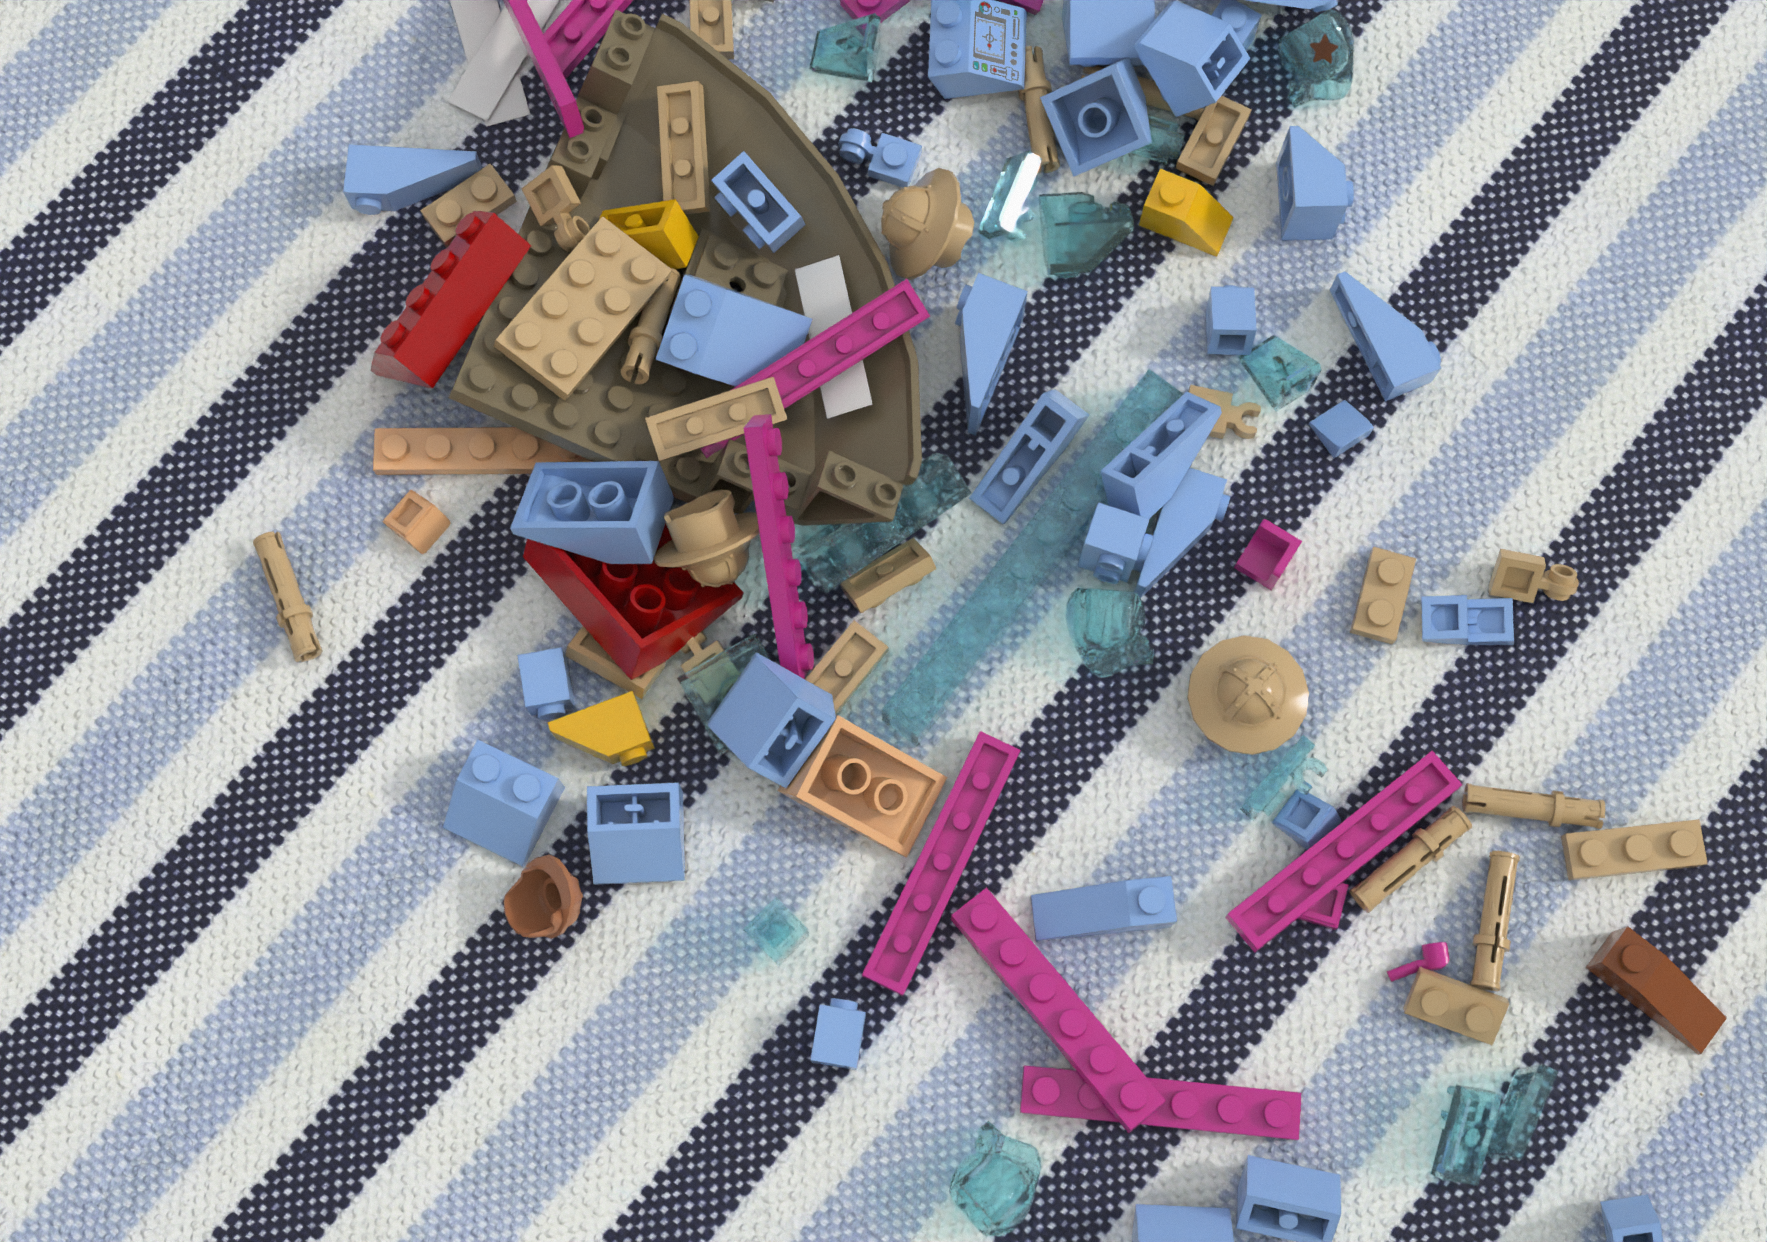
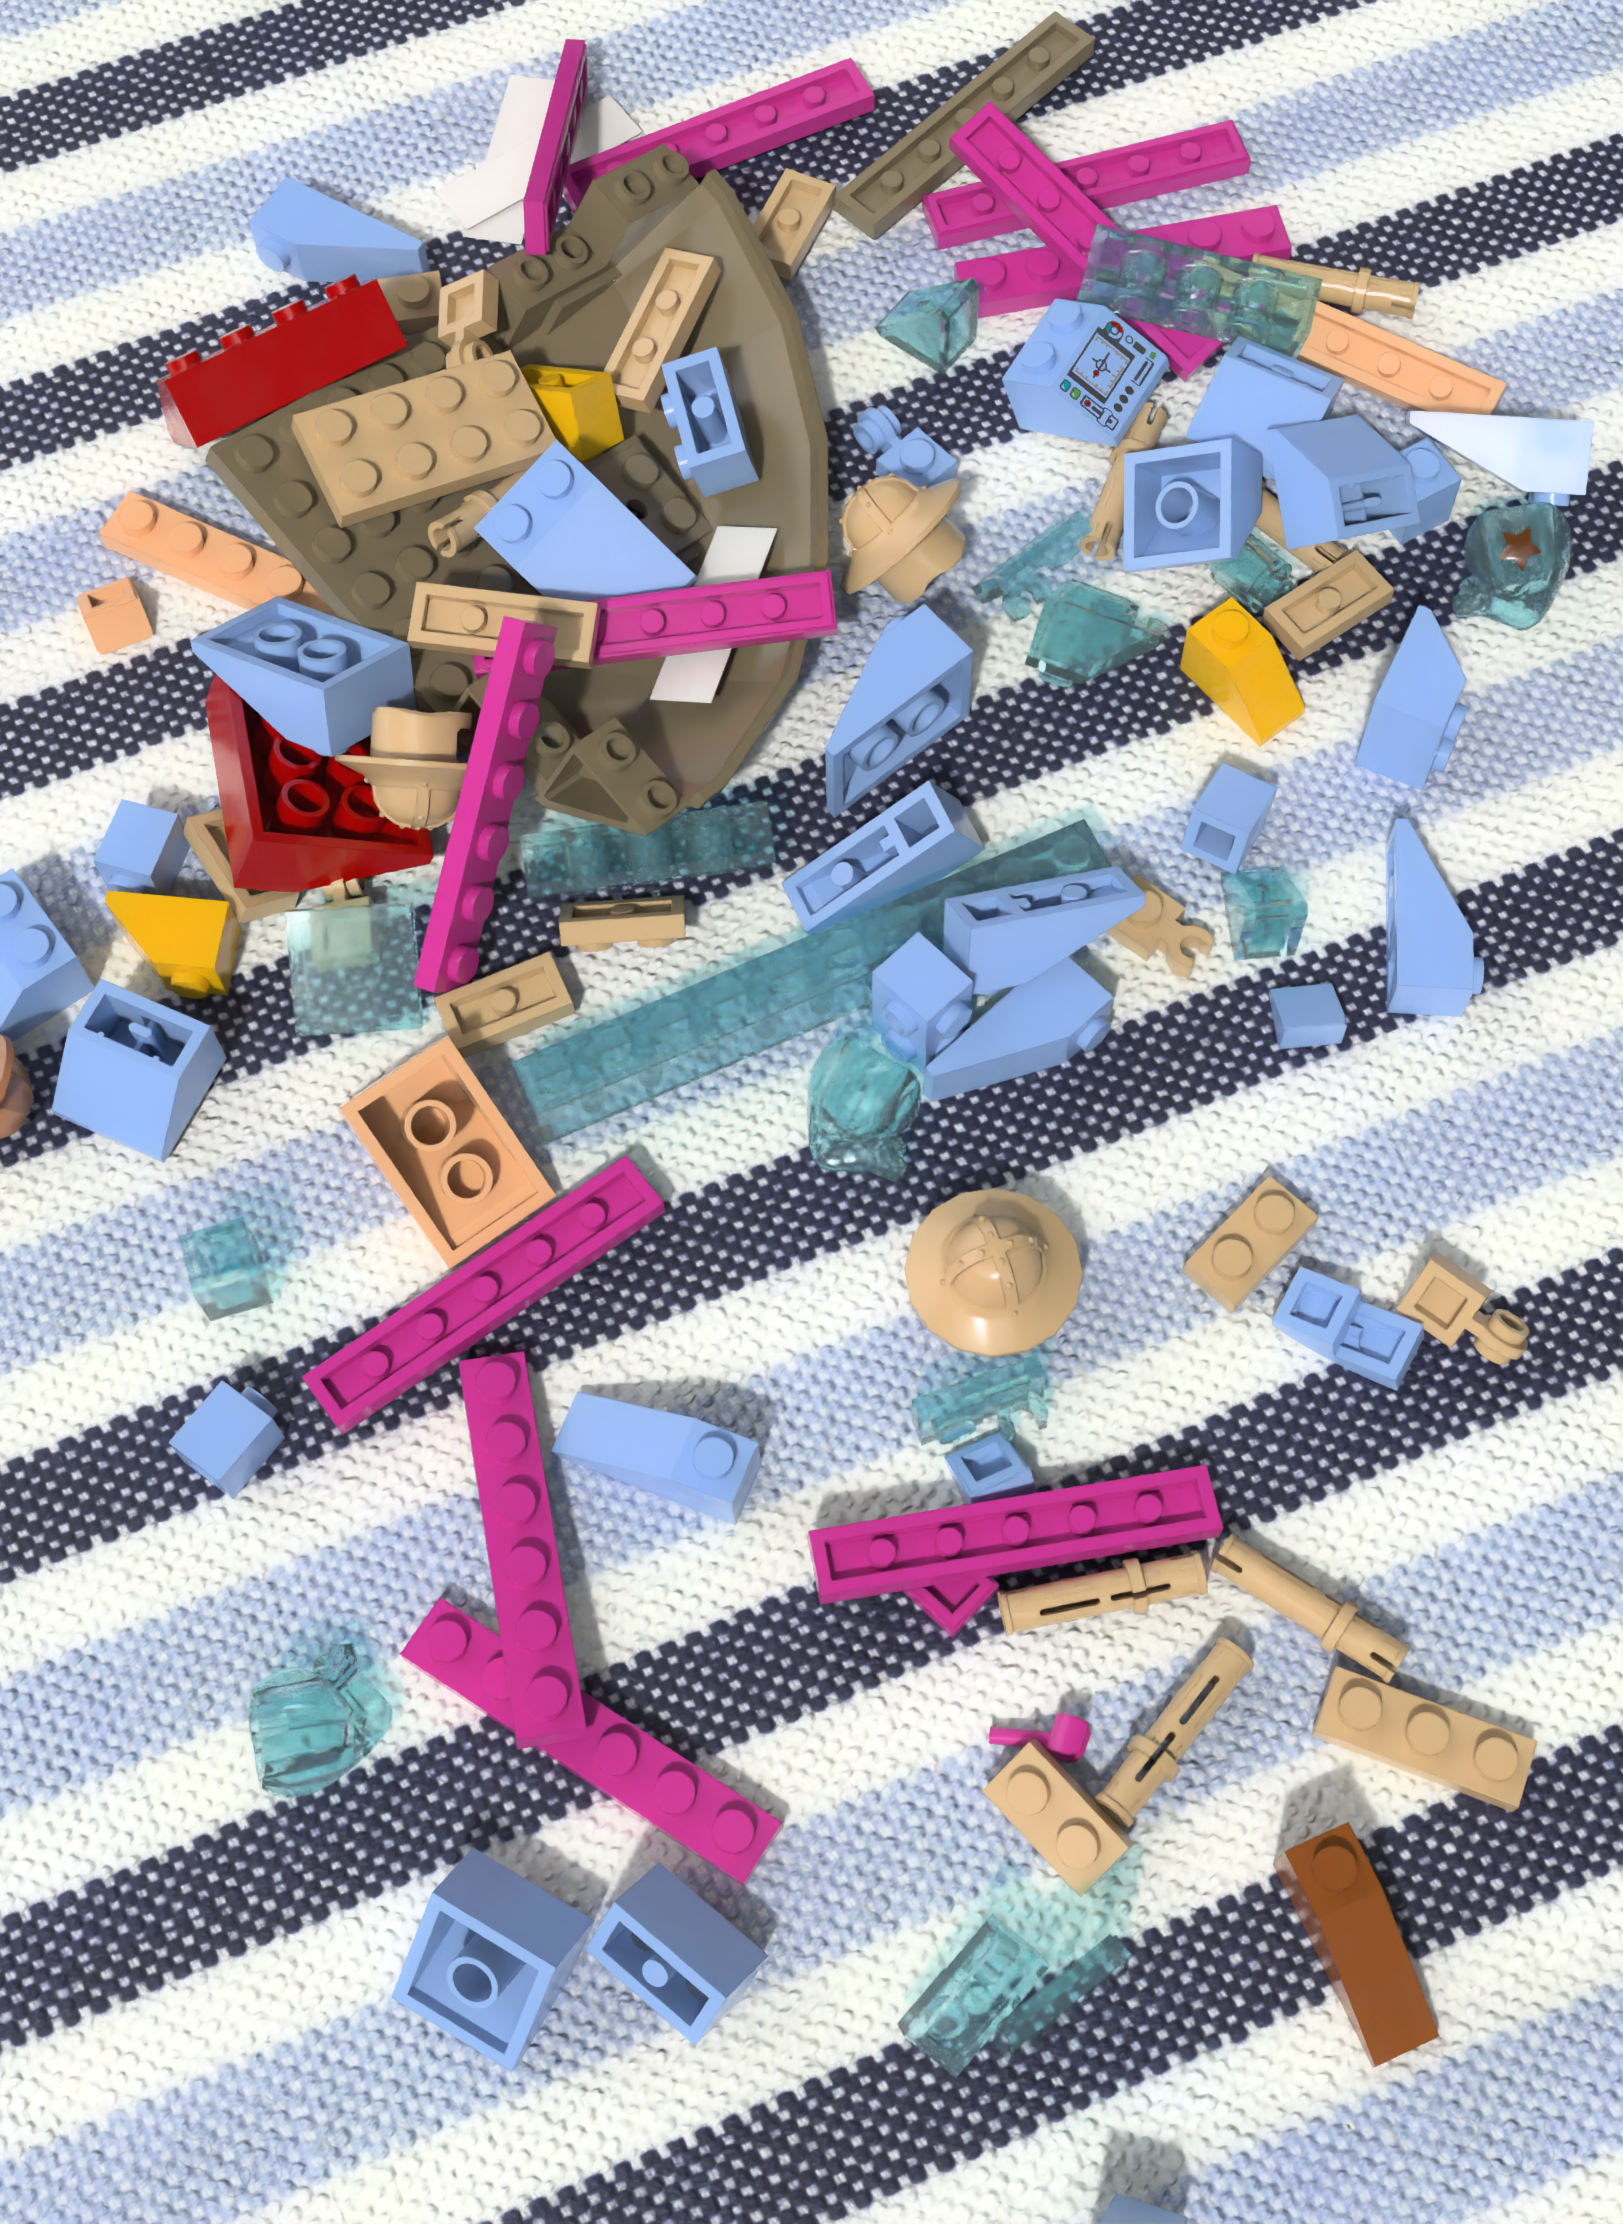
camera: 30 degrees right, 10 degrees down
(773, 719) = (371, 1009): light blue slope -> none
(1267, 554) = (1123, 1120): dark pink panel -> none

